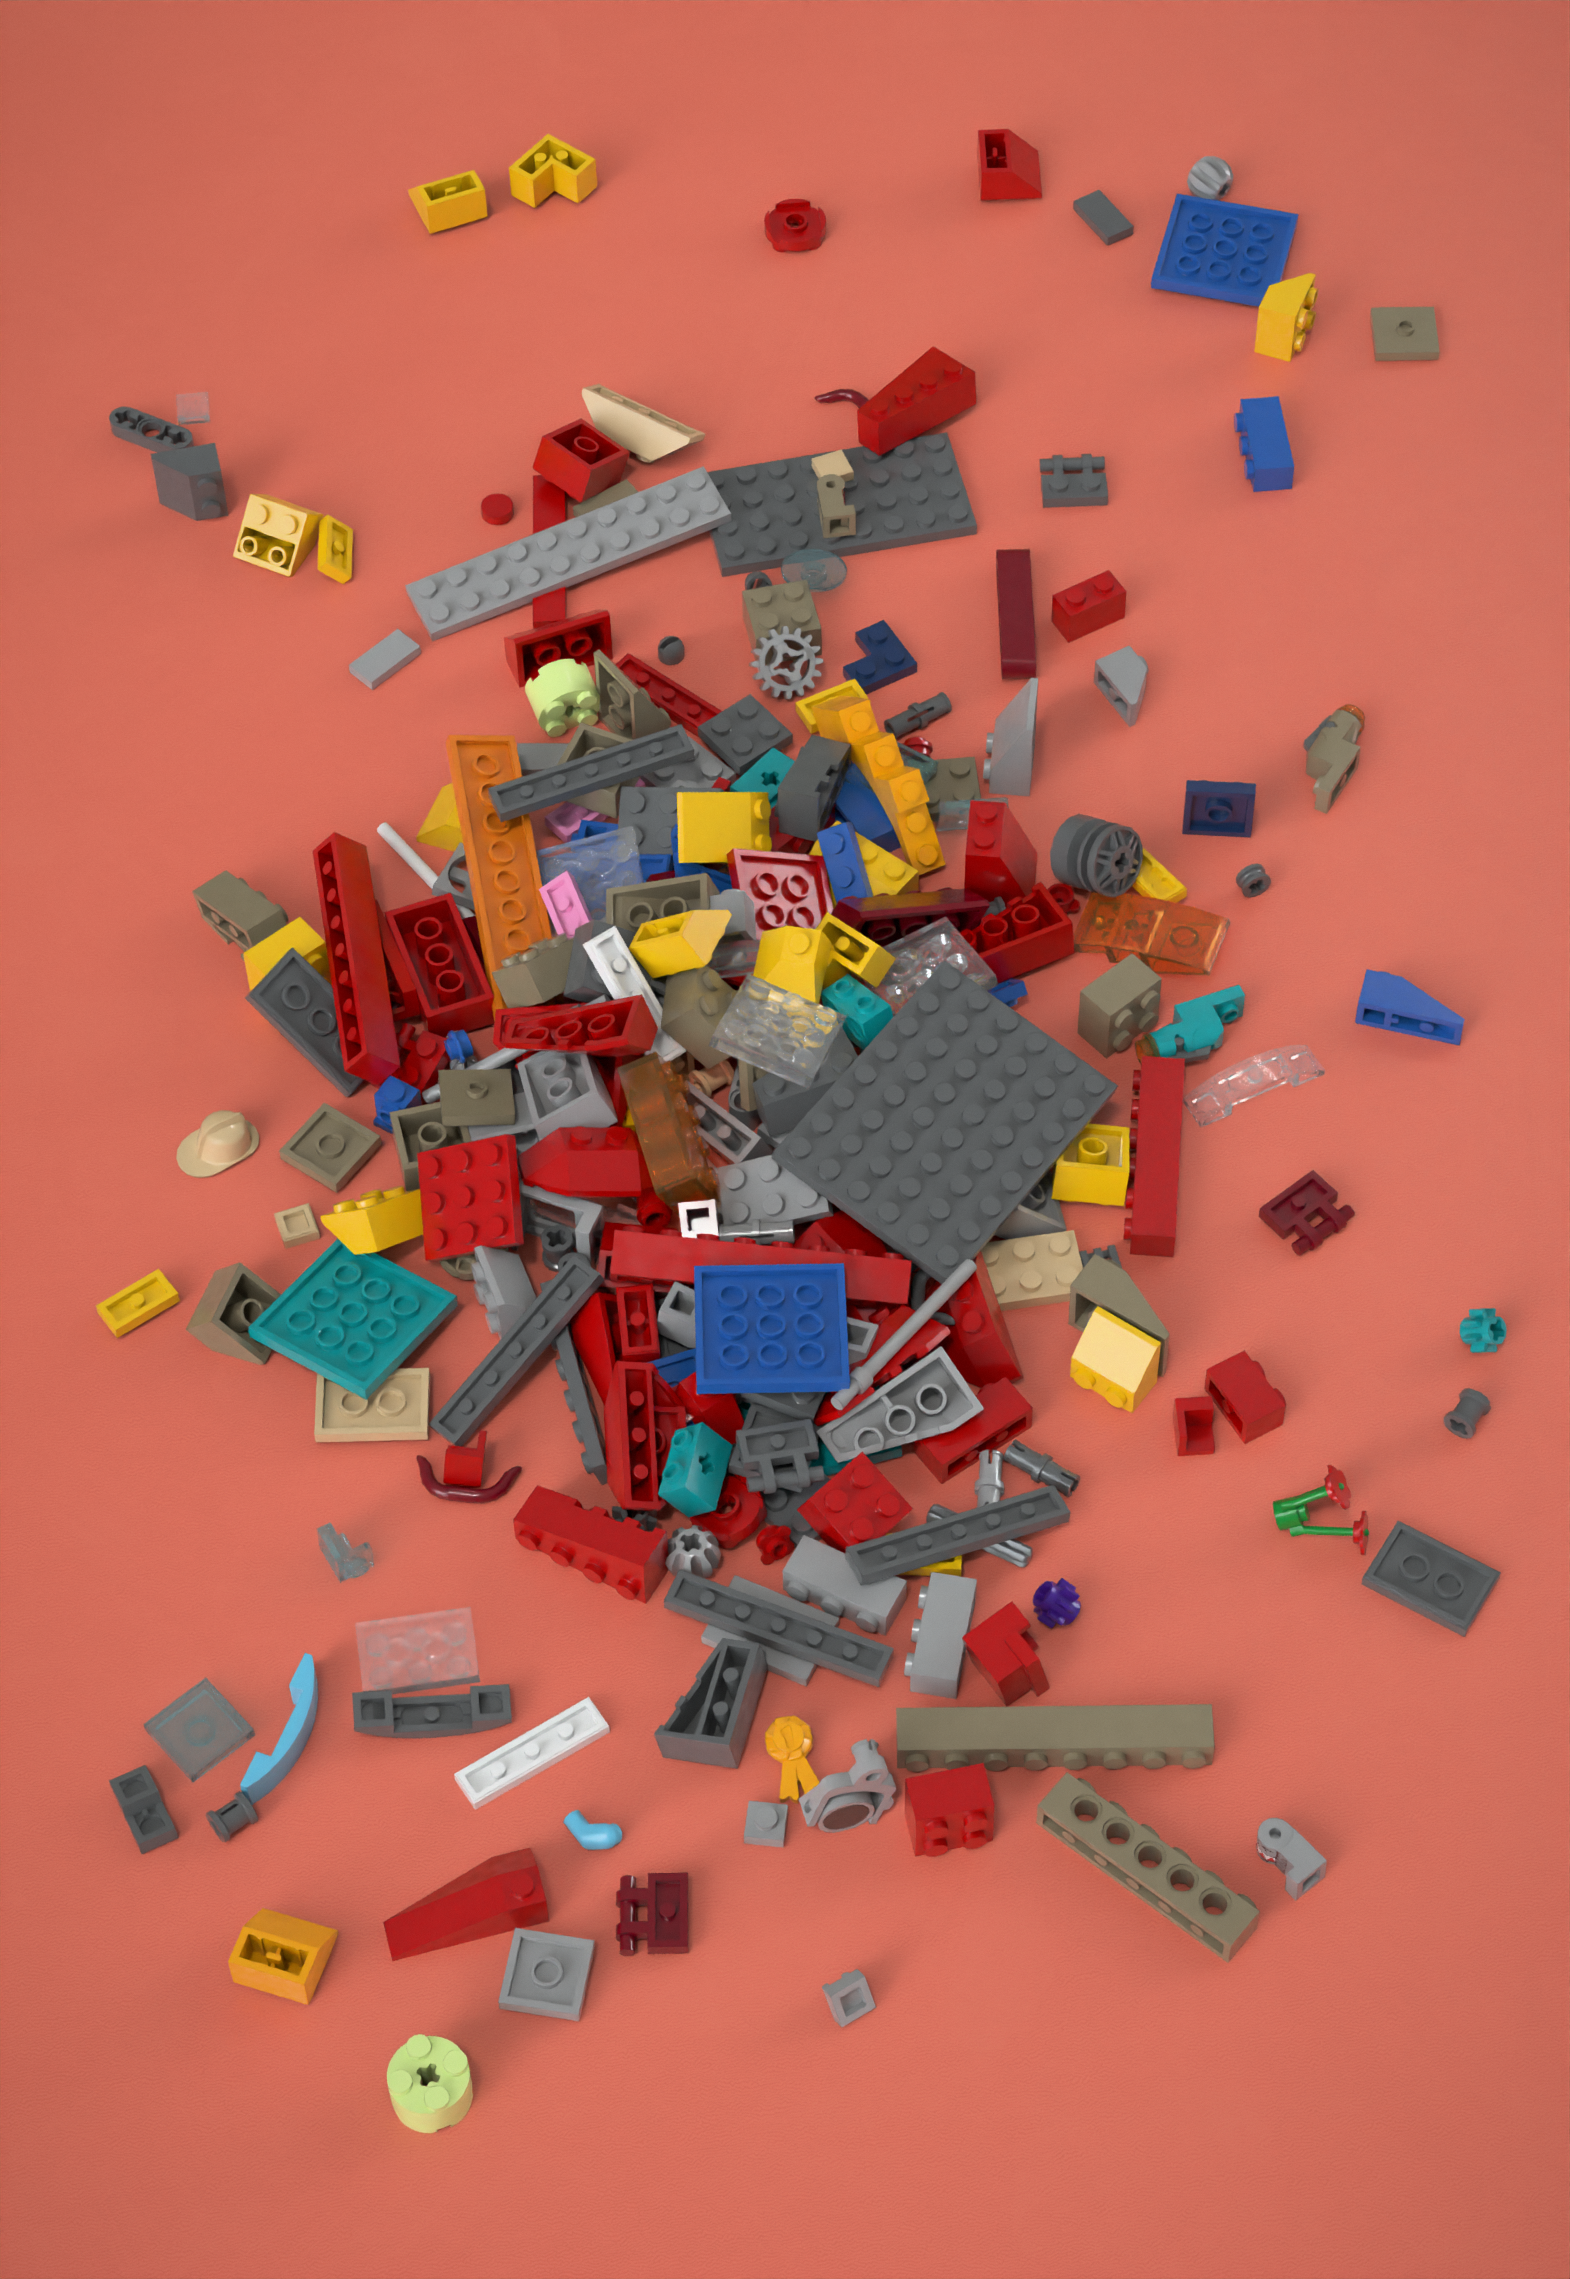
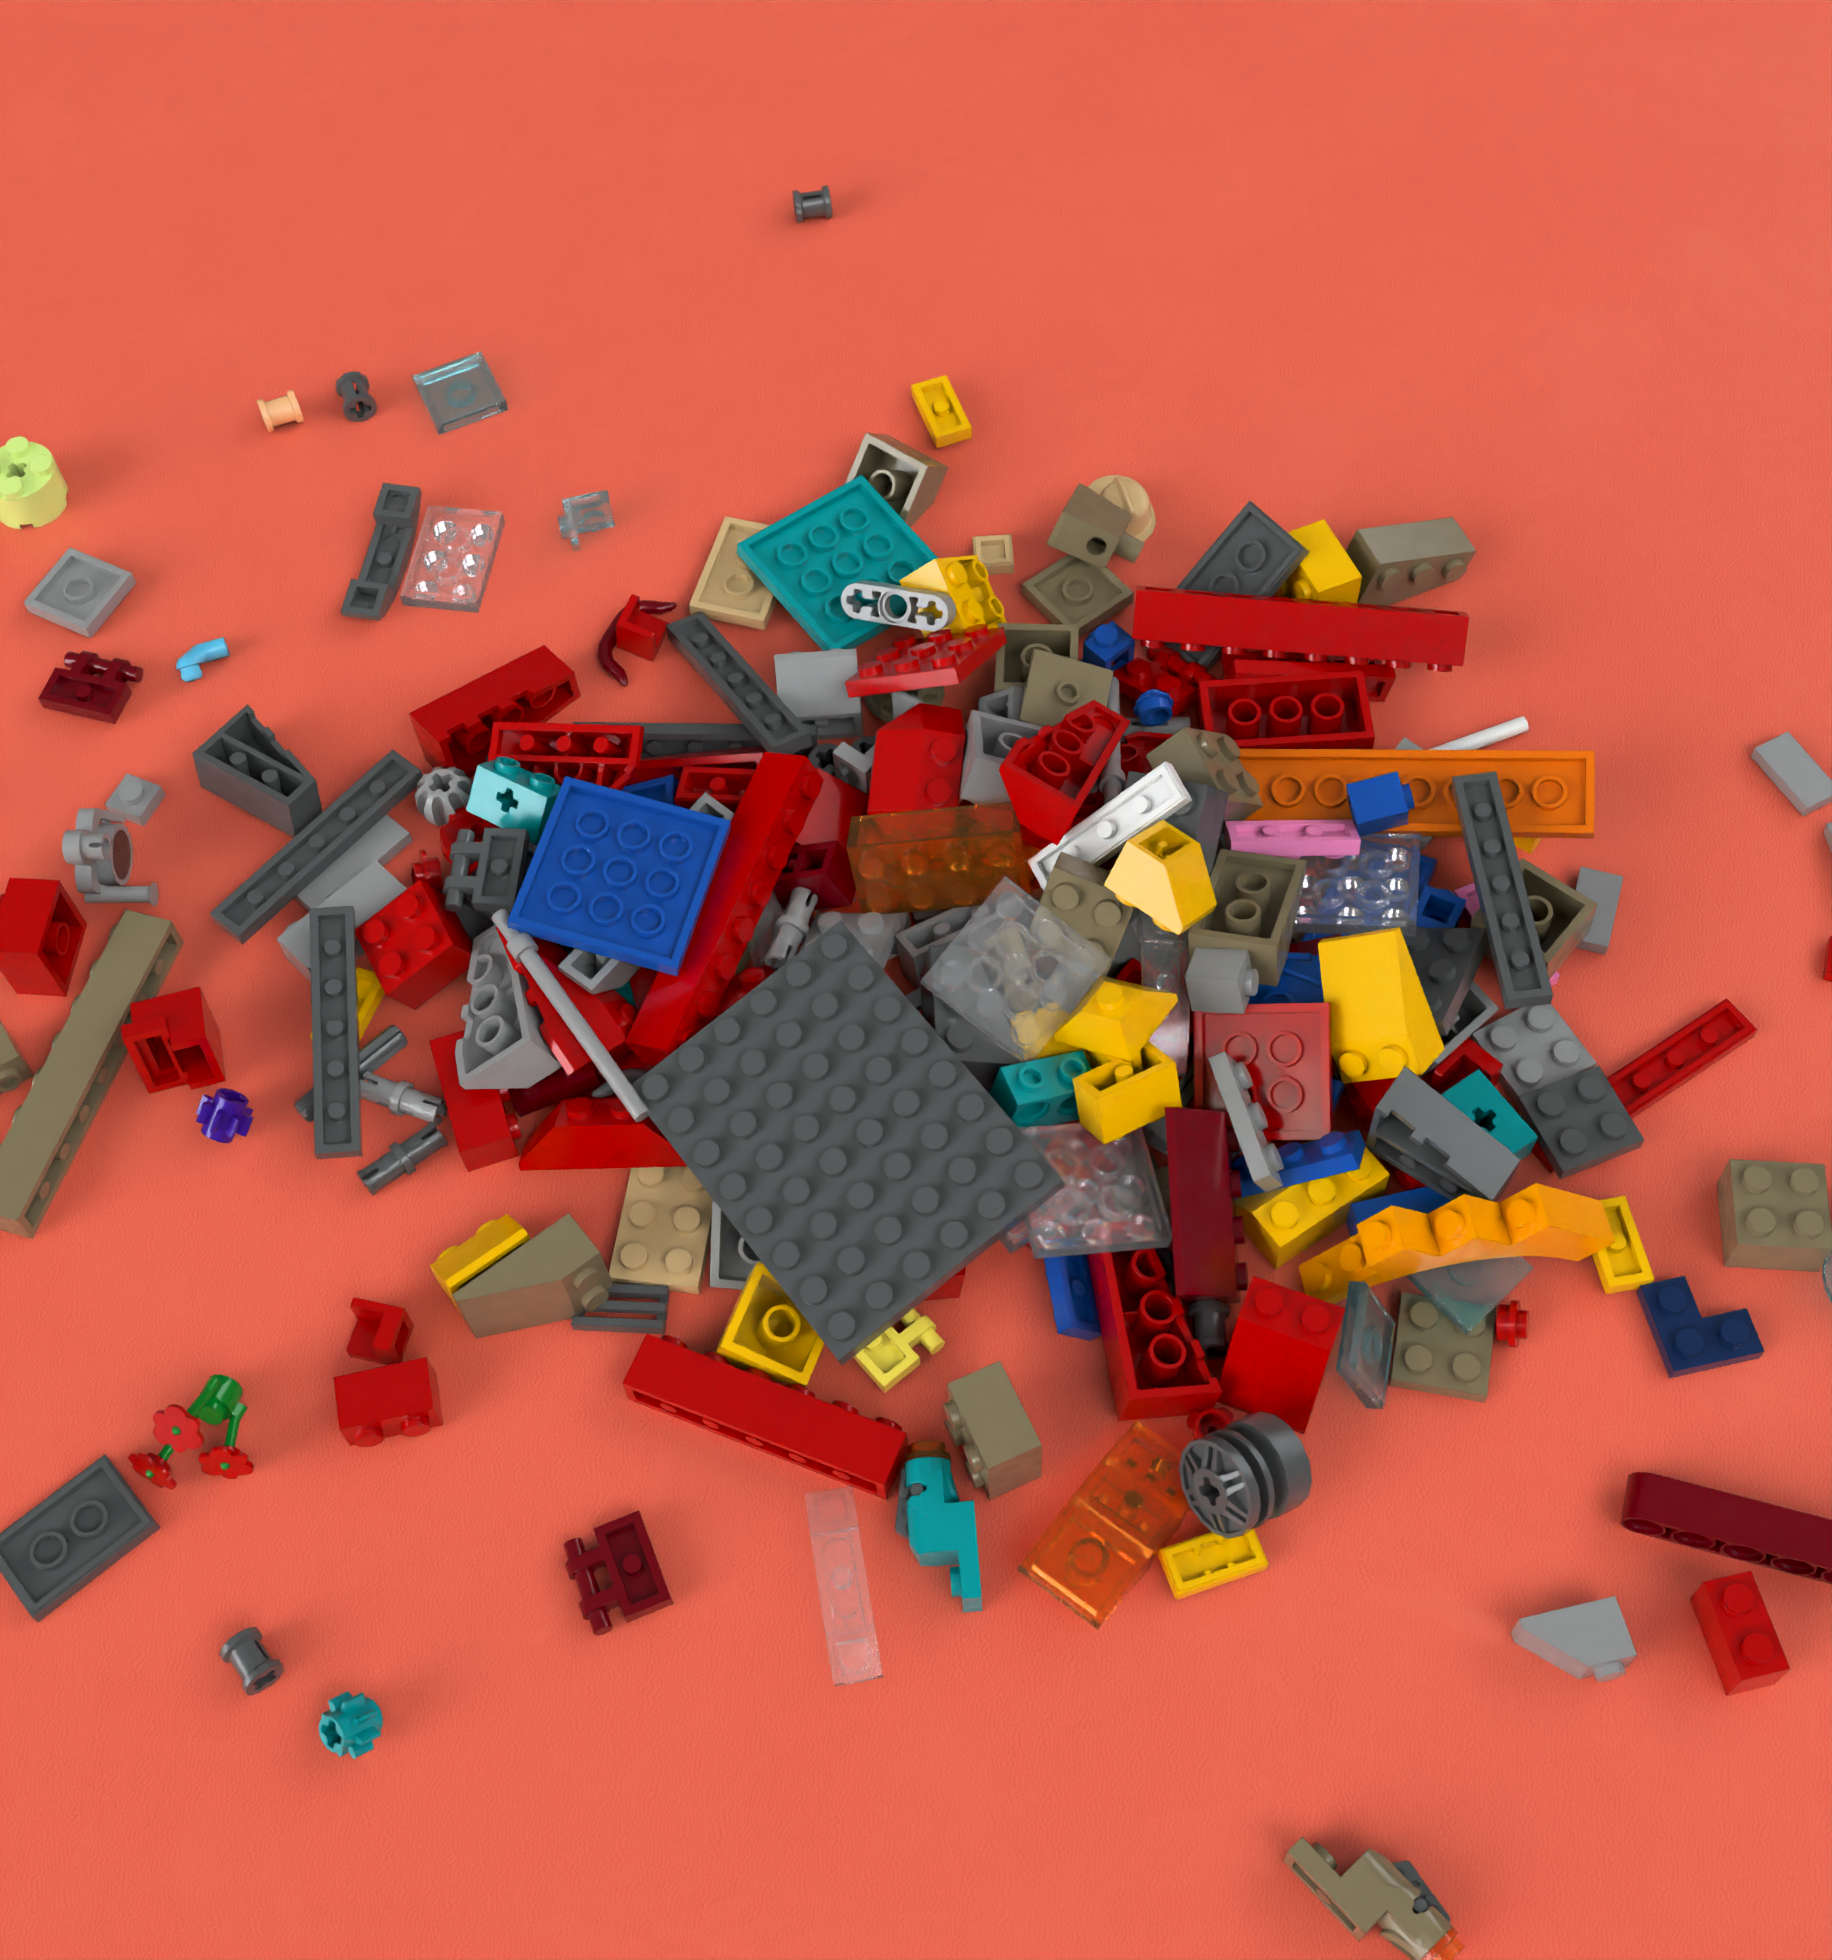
camera: 110 degrees right, 5 degrees up
(143, 1809) = (411, 343): dark grey slope -> none
(267, 1139) = (1094, 529): none -> dark tan torso
(267, 1882) = (280, 411): none -> light nougat bush
(268, 1771) = (448, 467): medium azure slope -> none
(281, 1955) = (200, 403): light orange slope -> none
(403, 1267) = (914, 599): none -> light grey beam
(476, 1905) = (177, 559): red wedge -> none
(528, 866) = (1379, 803): none -> blue brick
(531, 1753) = (309, 632): white tile -> none
(563, 696) = (1676, 926): yellowish green brick -> none
(565, 639) = (1775, 945): red slope -> none
(624, 705) = (1642, 985): dark tan slope -> none
(671, 650) = (1749, 1084): dark grey hinge -> none
(778, 649) = (1691, 1194): light grey gear -> none
(789, 1743) = (199, 837): light orange piece -> none
(861, 881) = (1248, 1121): none -> light grey plate
(936, 706) = (1579, 1347): dark grey pin -> none
(939, 1647) = (249, 998): light grey brick -> none
(1013, 745) = (1473, 1440): light grey slope -> none
(1218, 808) = (1303, 1665): dark blue plate -> none
(1253, 880) = (1173, 1696): dark grey bush -> none
(1401, 1007) = (895, 1819): blue slope -> none

